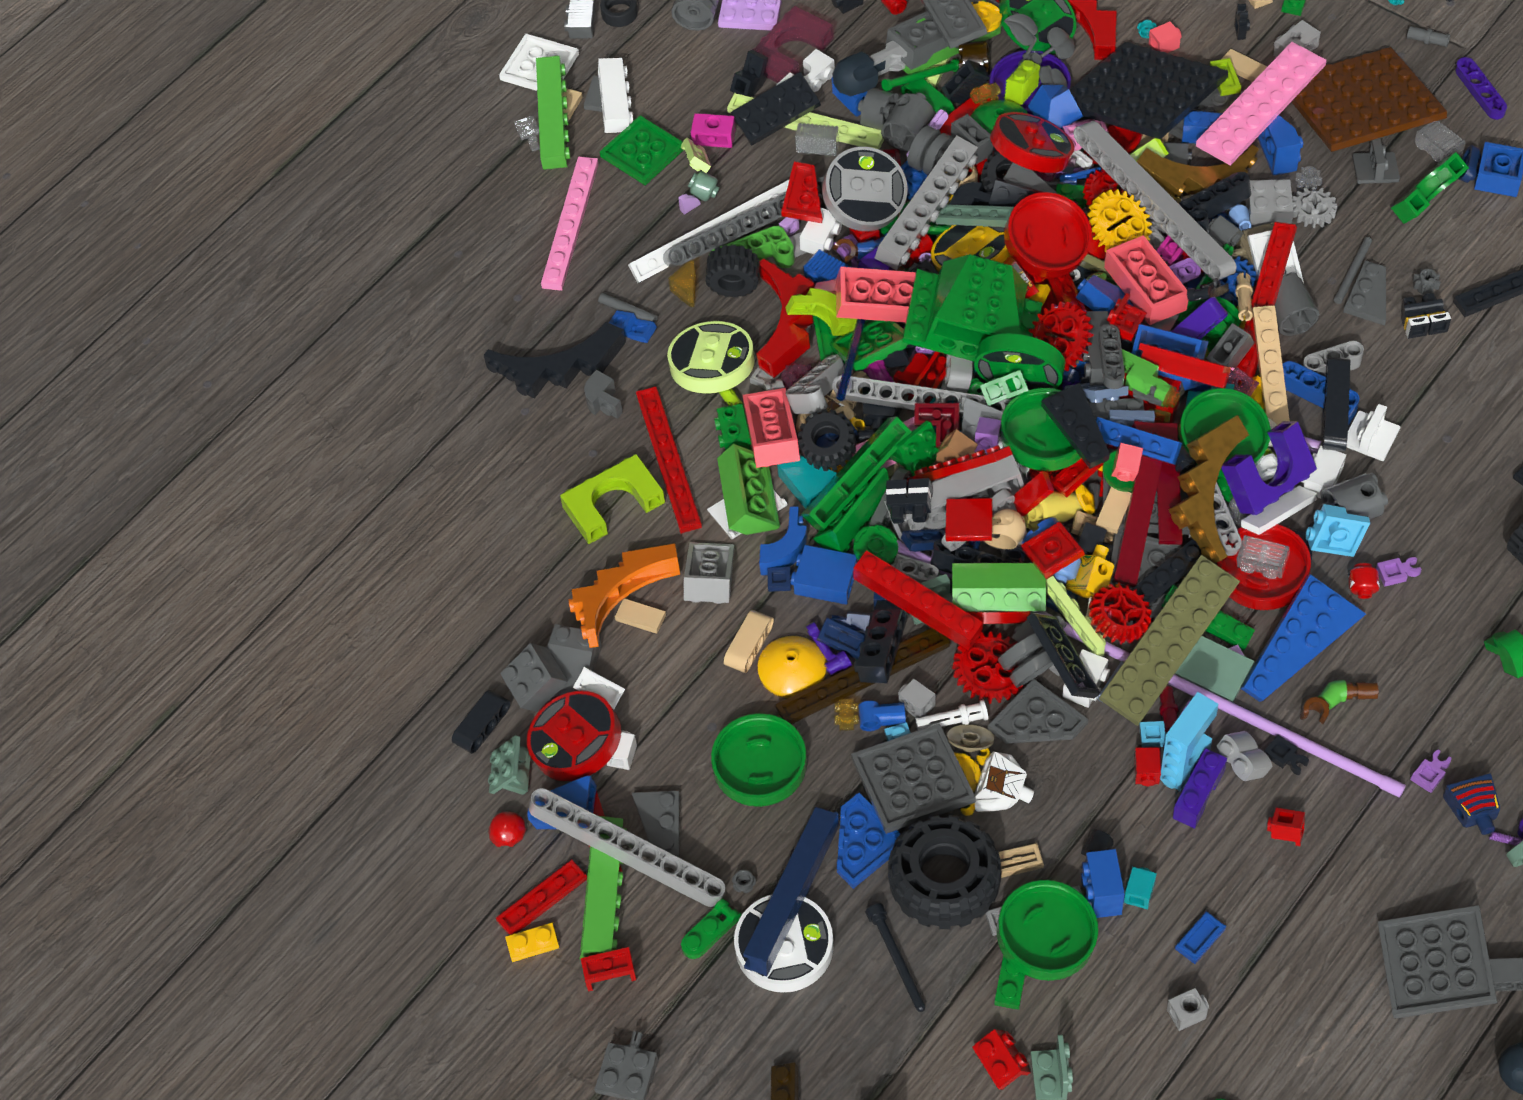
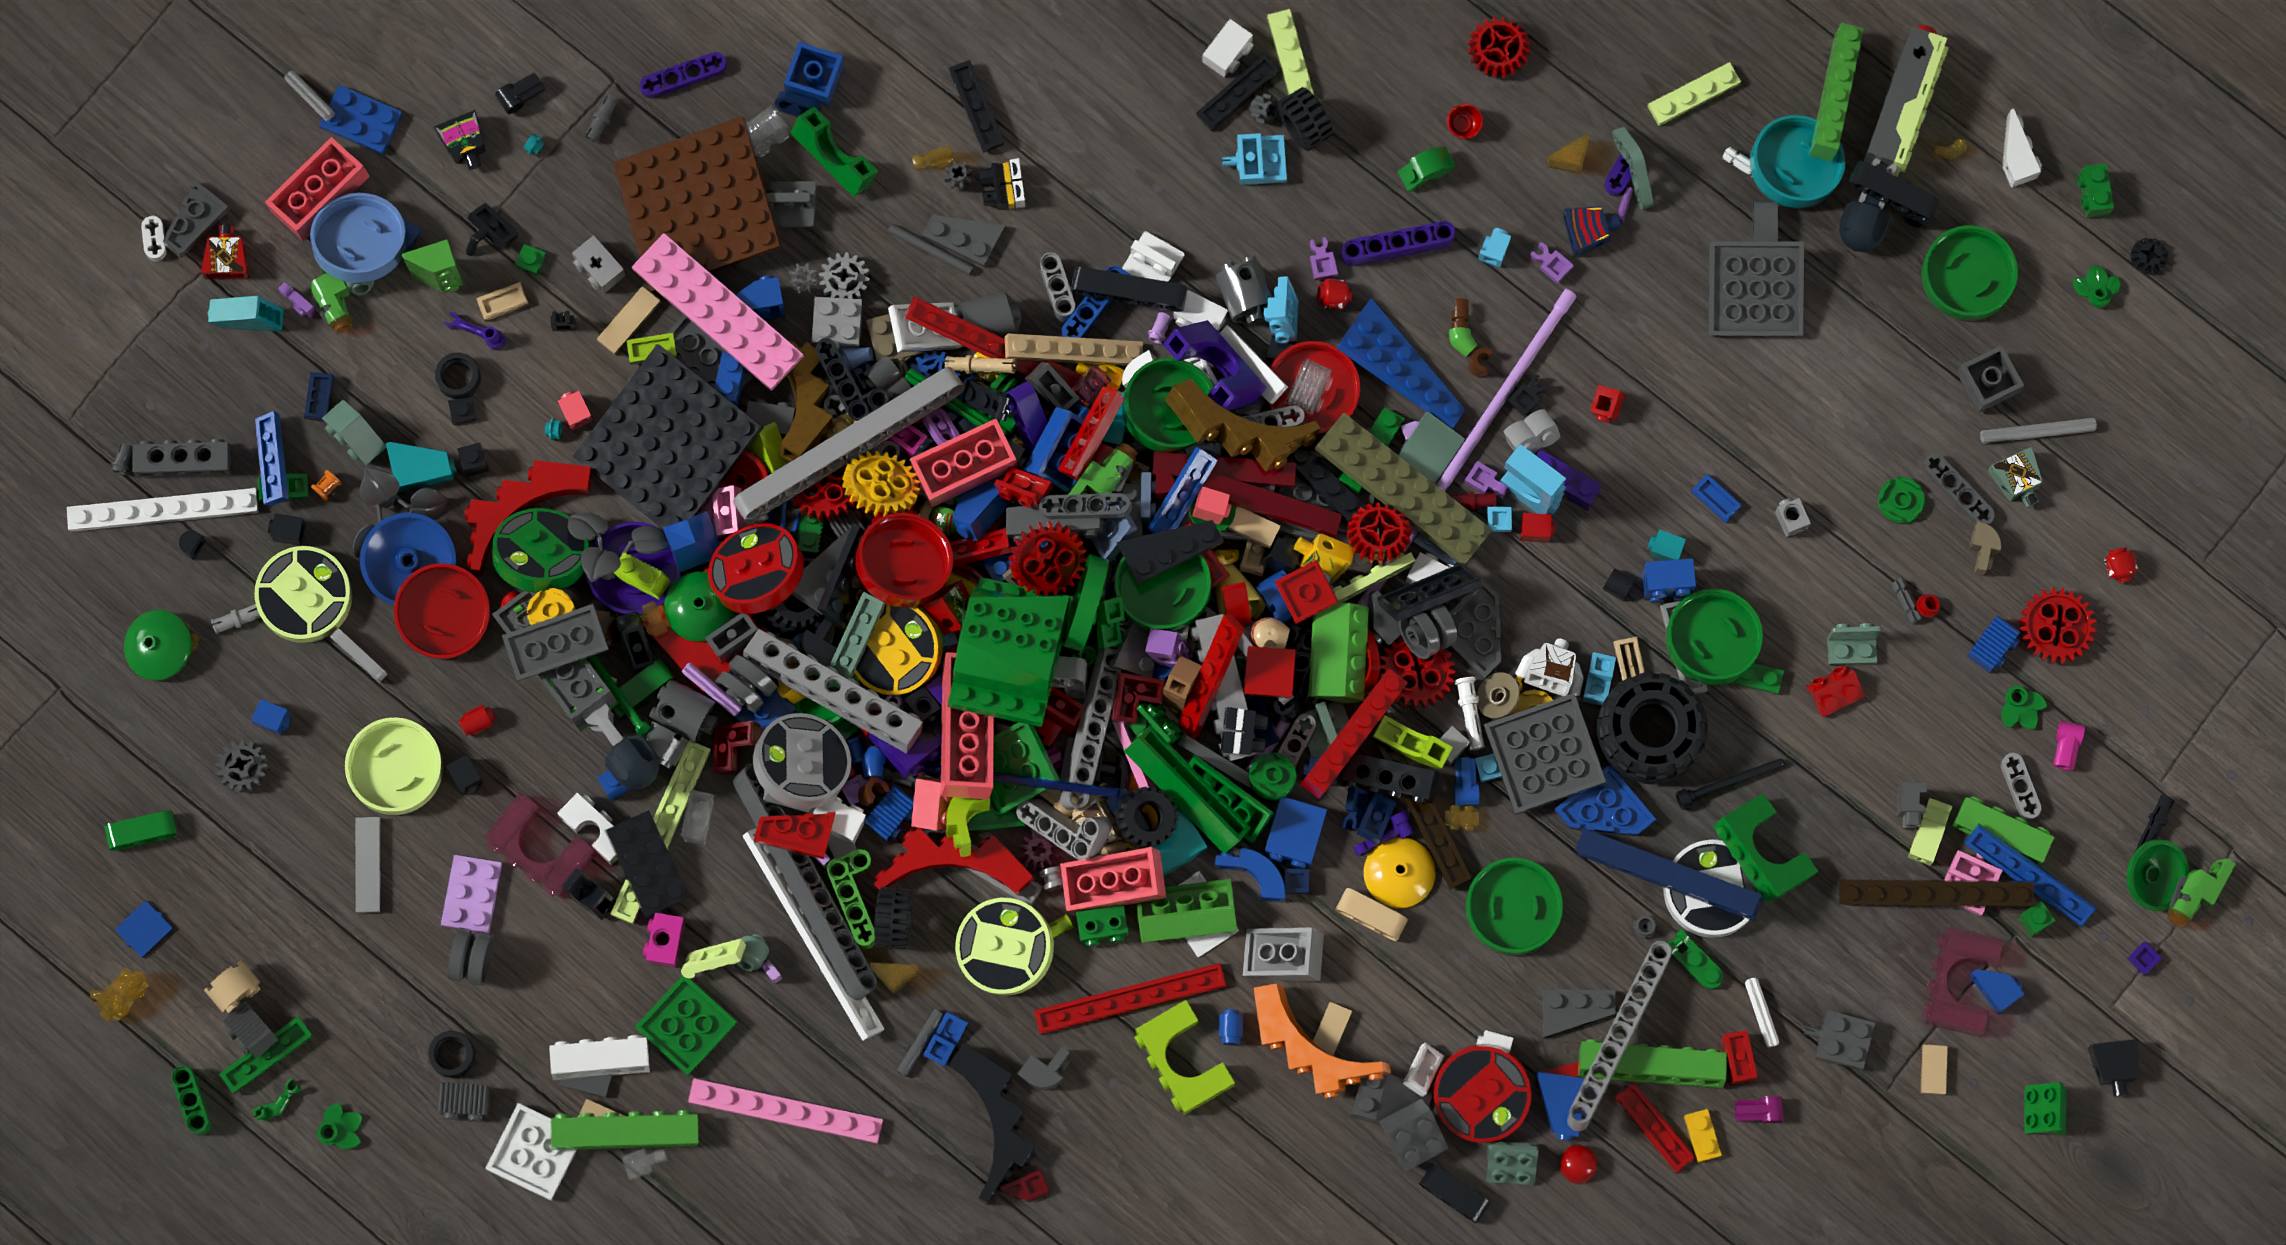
camera: 95 degrees left, 20 degrees up
(500, 393) = (1027, 1187): none -> dark red tile
(556, 998) = (1766, 1109): none -> magenta piece
(640, 533) = (1231, 1027): none -> blue brick
(657, 994) = (1762, 1012): none -> white axle
(789, 989) = (1769, 878): none -> green arch
(916, 654) = (1412, 744): none -> lime arch
(1003, 832) = (1599, 678): none -> medium azure slope
(1426, 642) = (1406, 235): none -> dark purple beam
(1438, 719) = (1495, 247): none -> medium azure brick
(1441, 263) = (938, 157): none -> clear yellow plate
(1490, 511) = (1259, 159): none -> medium azure plate

